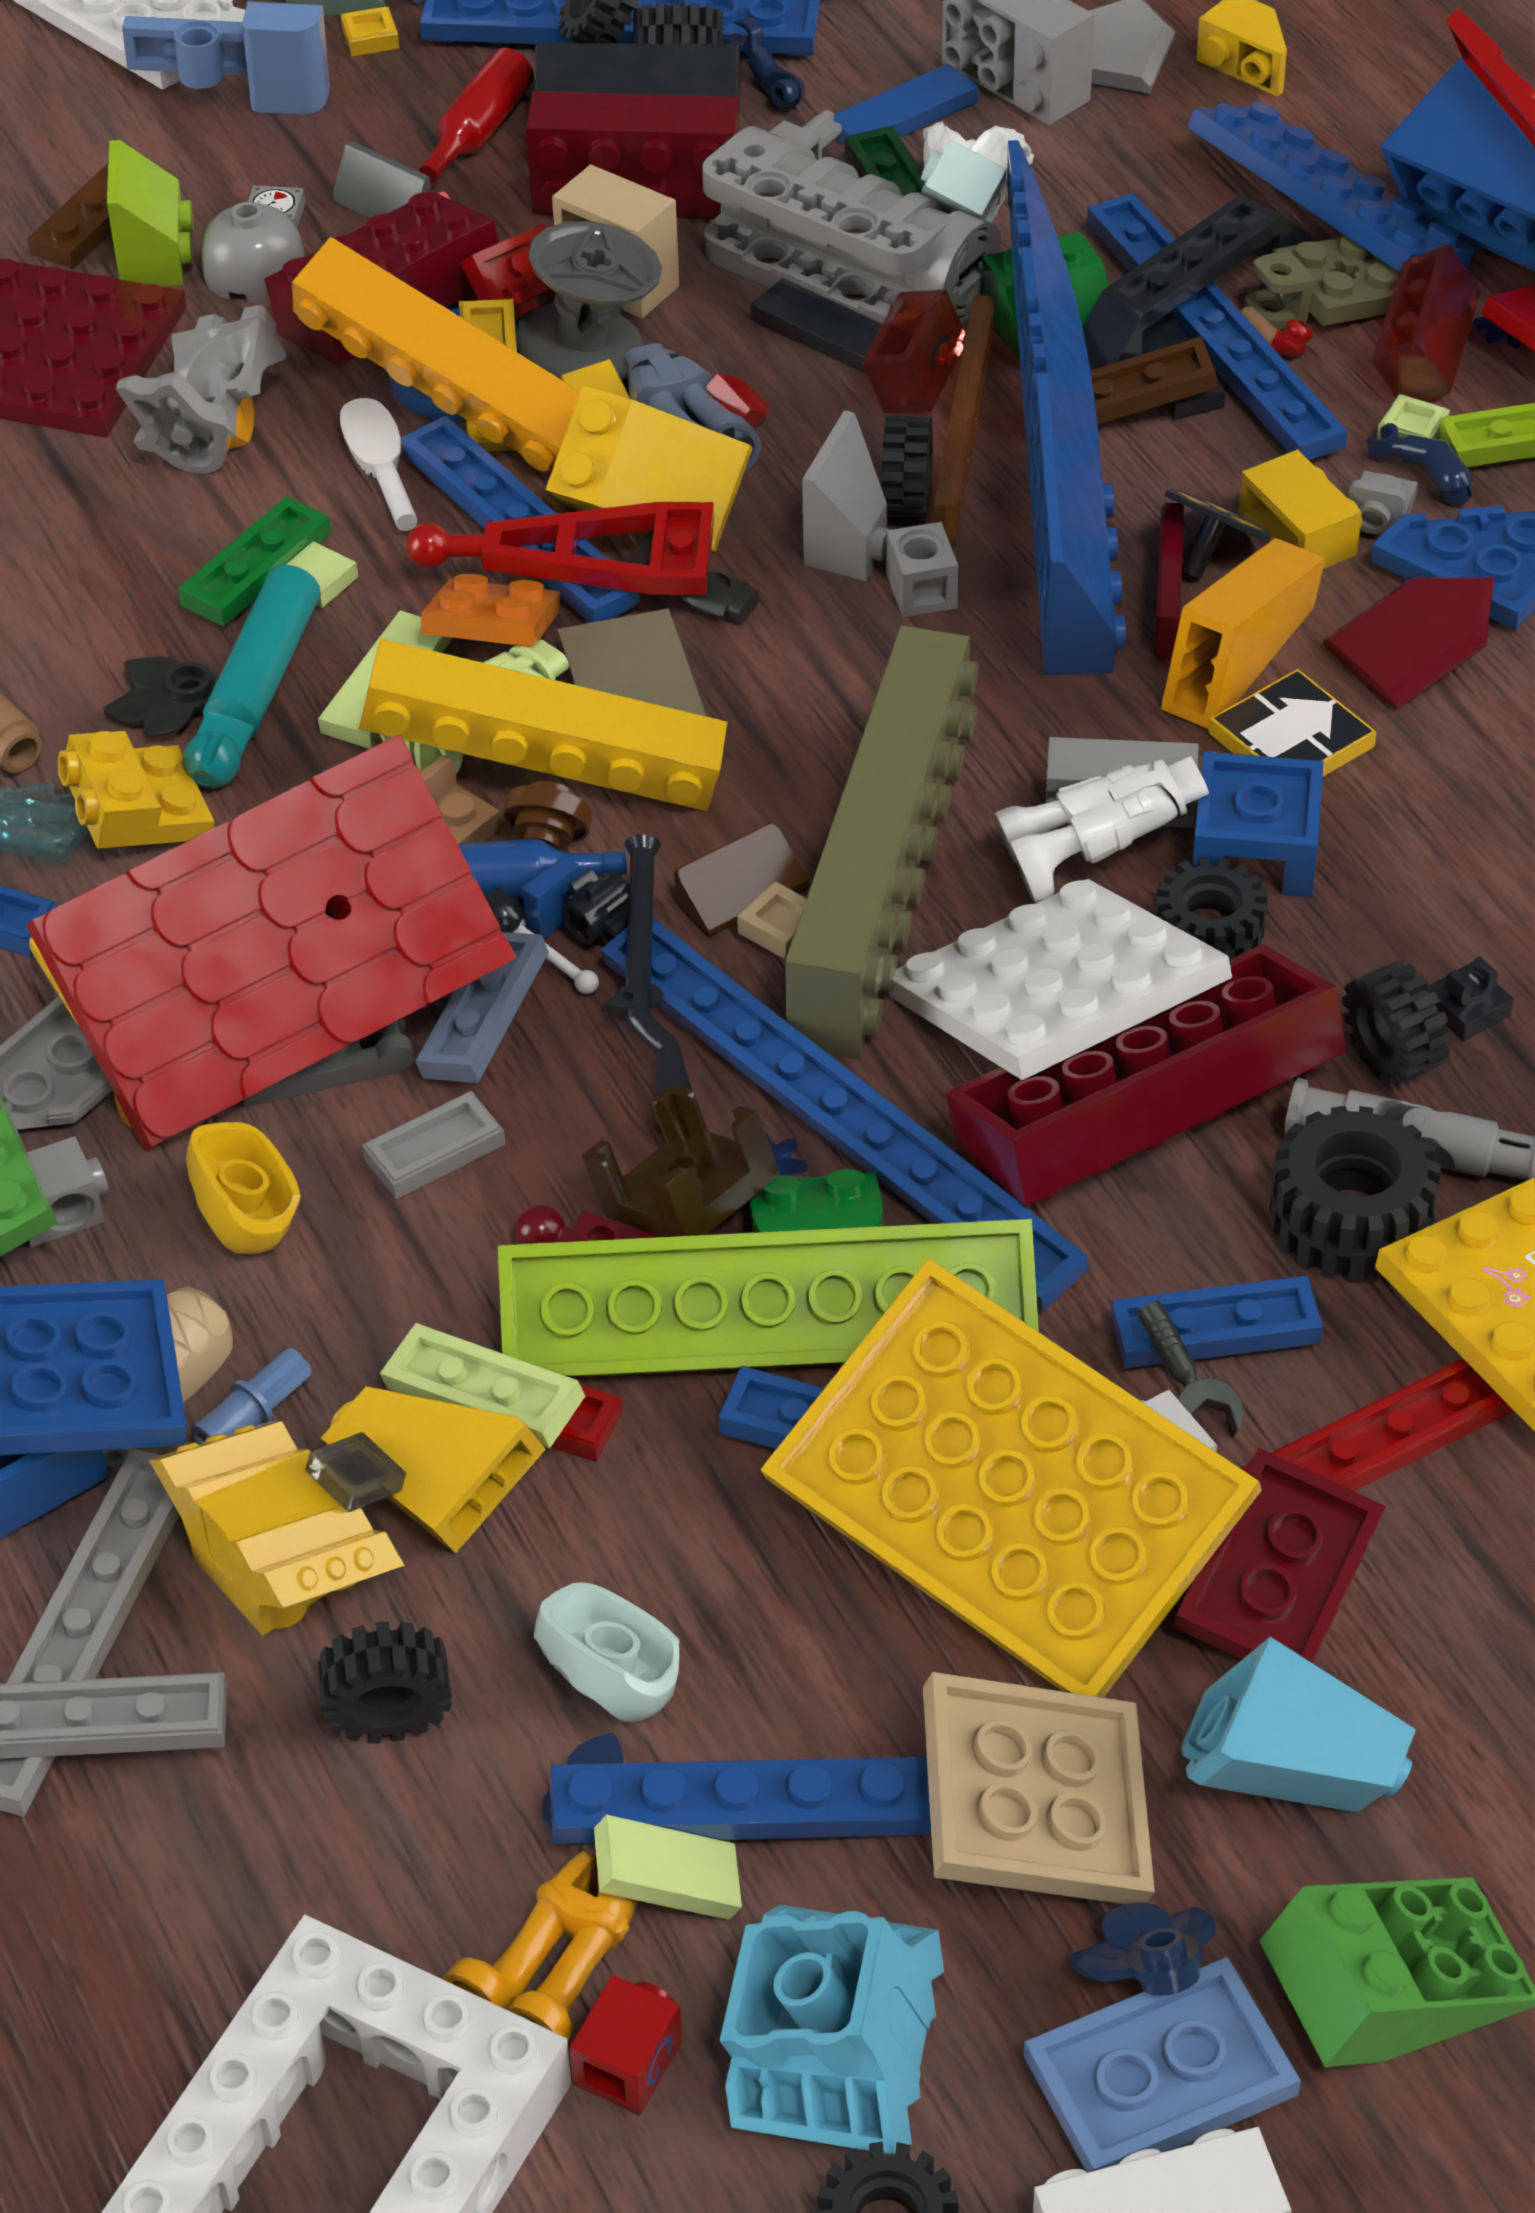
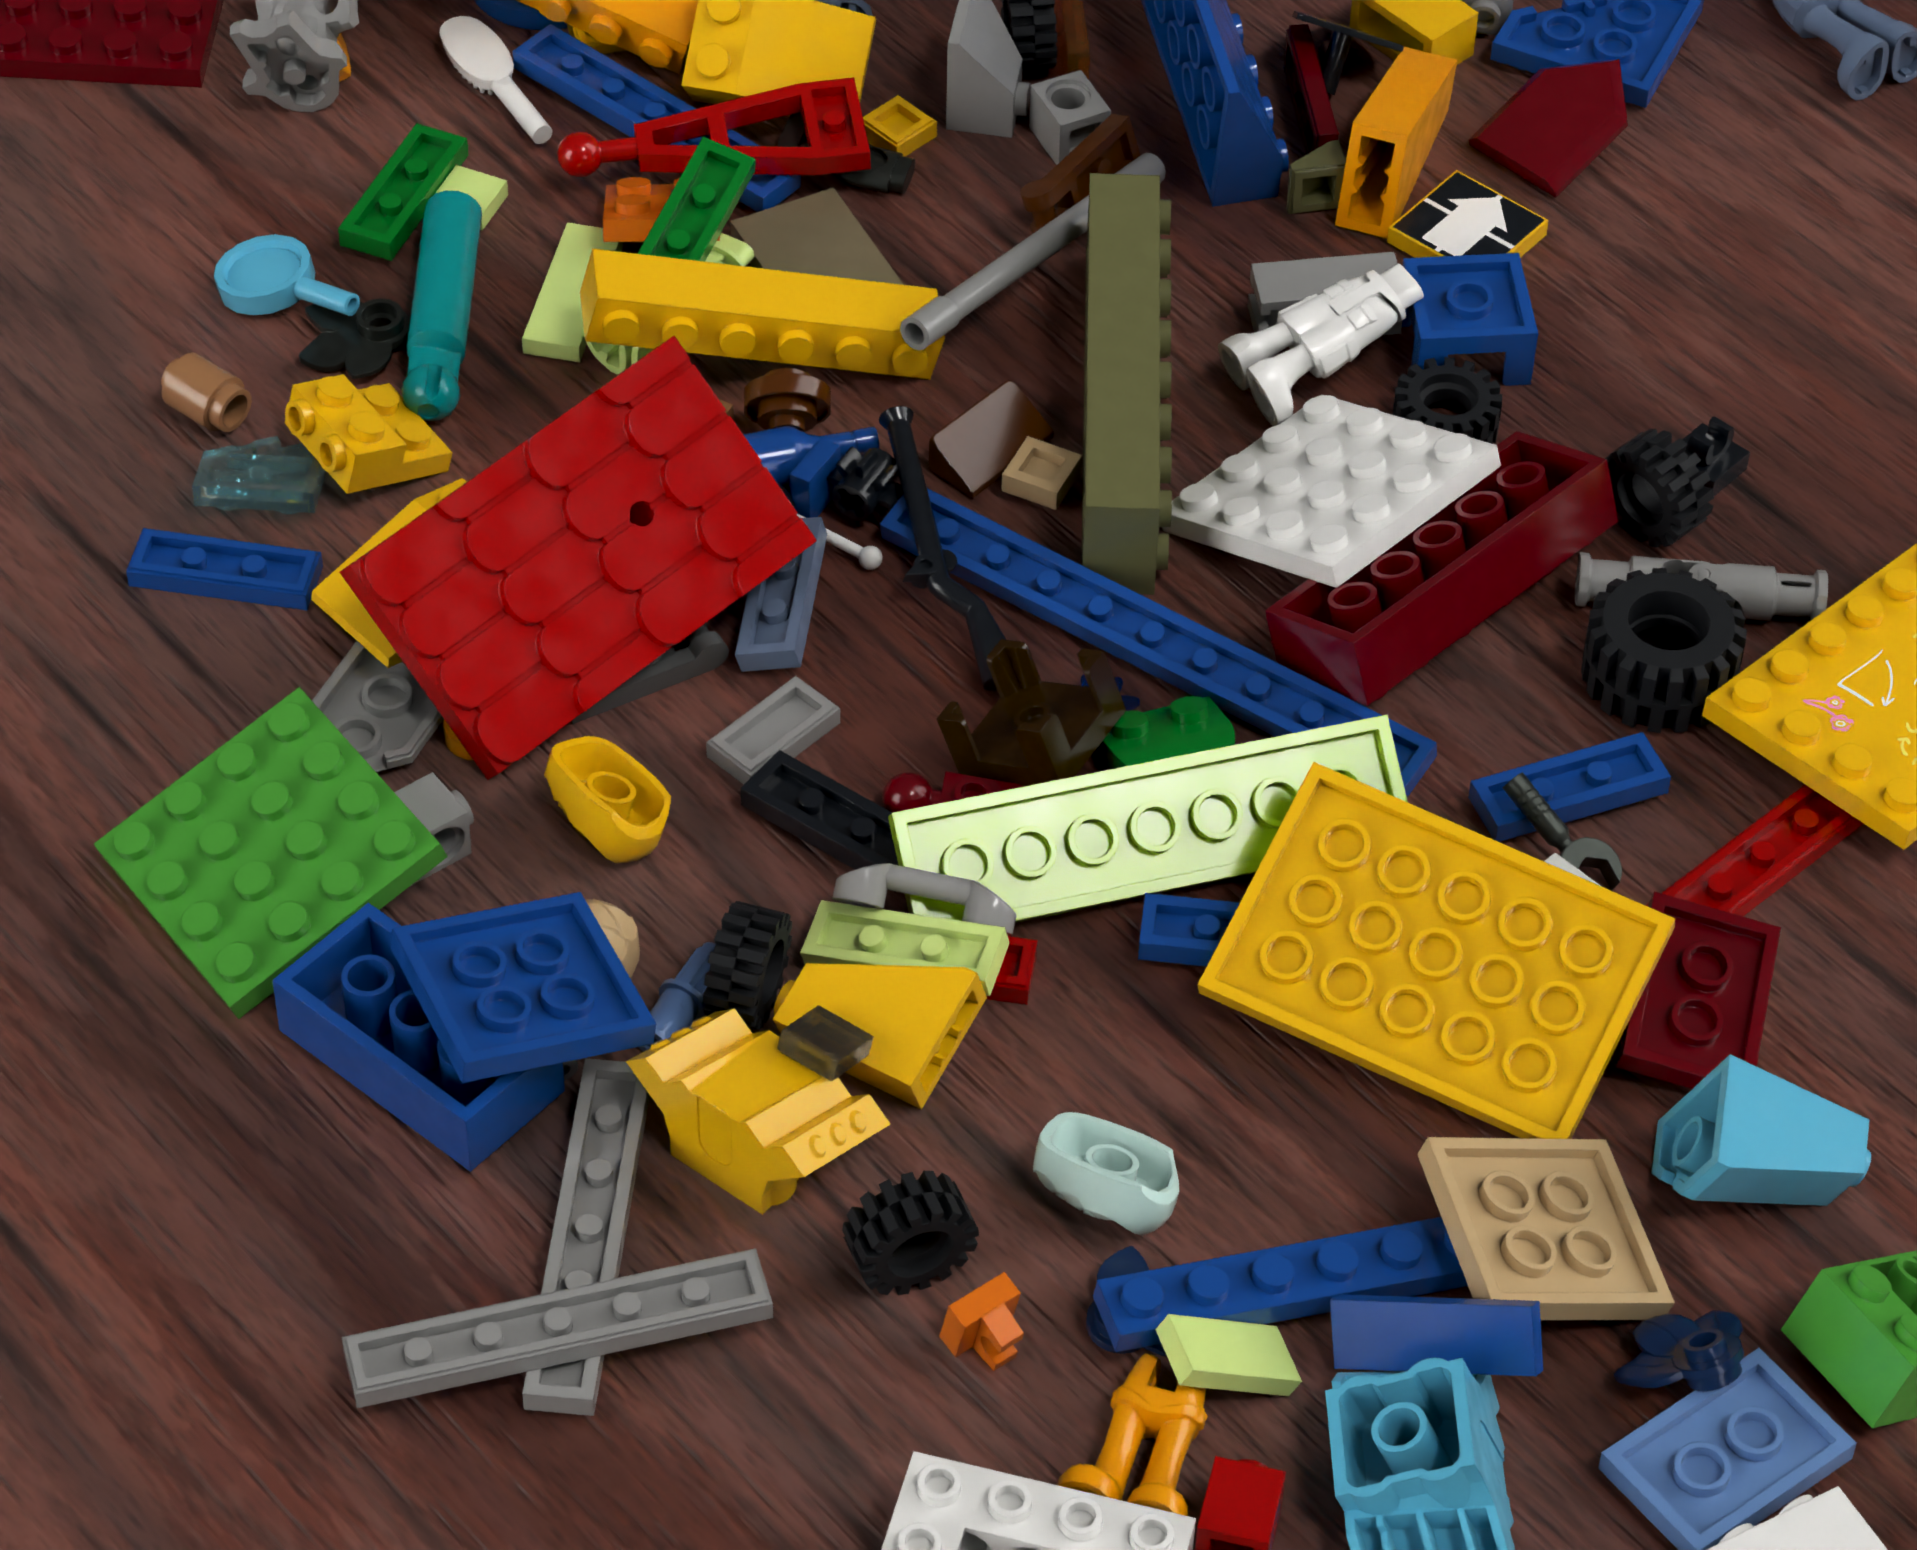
camera: 15 degrees left, 0 degrees up
(104, 626) = (274, 275): none -> medium azure piece
(314, 1375) = (748, 962): none -> black tyre
(436, 1786) = (985, 1322): none -> orange tile
(447, 1234) = (820, 812): none -> black plate
(461, 1316) = (870, 884): none -> light grey bar
(512, 608) = (700, 203): none -> green plate
(722, 746) = (946, 311): none -> light grey piece
(754, 557) = (899, 126): none -> yellow tile
(904, 1886) = (1402, 1330): none -> blue tile
(945, 607) = (1102, 152): none -> reddish brown plate
(1147, 660) = (1316, 179): none -> olive slope

